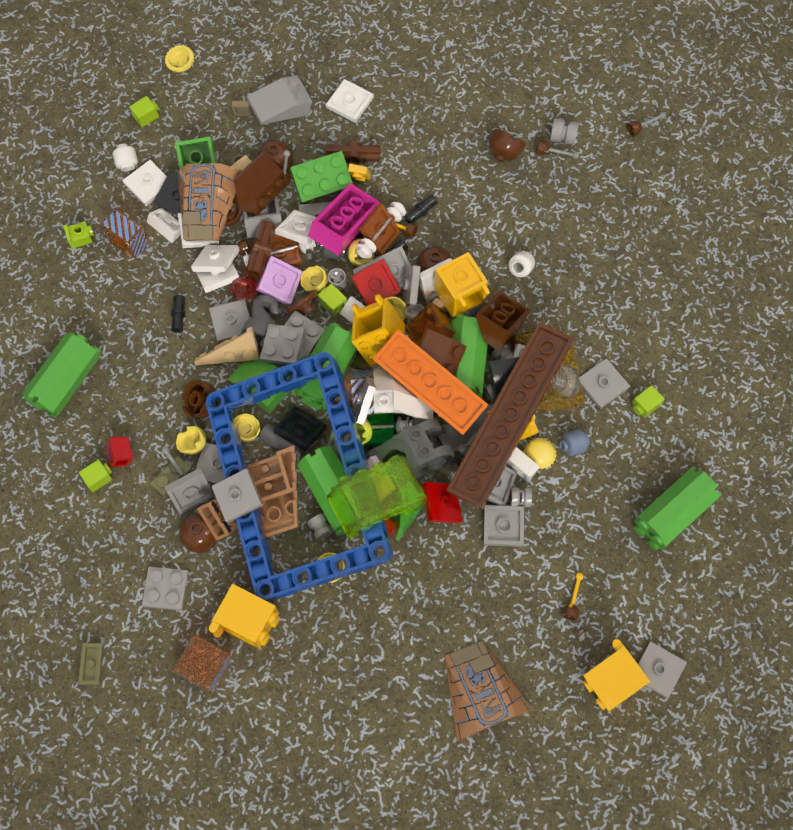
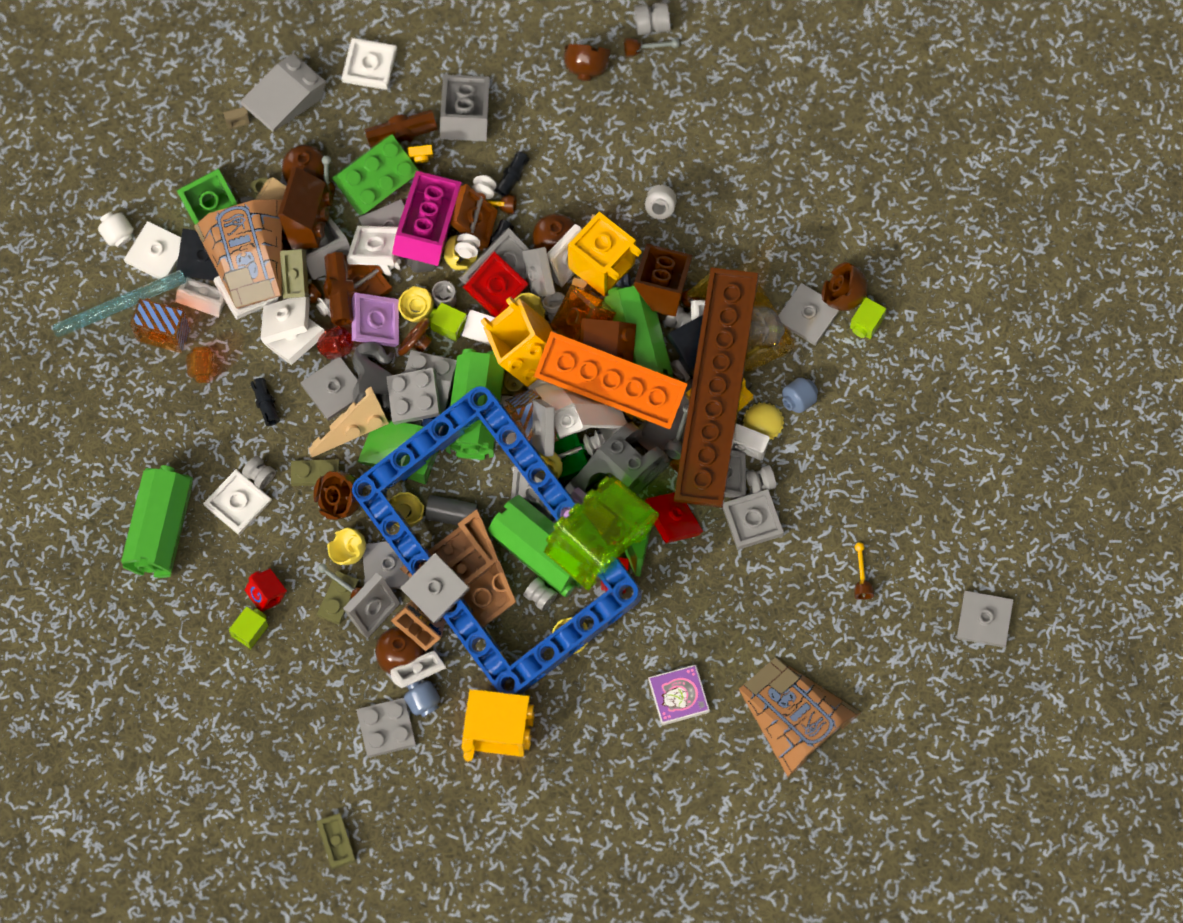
camera: 20 degrees left, 0 degrees up
(79, 234) = (99, 352): lime brick -> none
(102, 210) = (118, 303): none -> clear light blue axle
(128, 380) = (237, 502): none -> white tile
(144, 111) = (114, 161): lime brick -> none
(144, 271) = (202, 364): none -> clear orange head
(151, 362) = (259, 472): none -> light grey wheel
(181, 57) = (132, 75): light yellow hat -> none
(186, 374) = (309, 471): none -> olive plate
(200, 575) = (422, 698): none -> sand blue head
(202, 663) = (467, 793): clear orange container -> none
(203, 553) = (417, 670): none -> white slope
(233, 227) = (294, 273): none -> plate
(300, 428) = (471, 488): black plate -> none
(396, 644) = (678, 695): none -> tile
(404, 152) = (464, 108): none -> light grey slope
(615, 678) = (940, 642): yellow container -> none
(639, 373) = (846, 288): none -> reddish brown cylinder
(676, 508) = (943, 431): bright green brick -> none

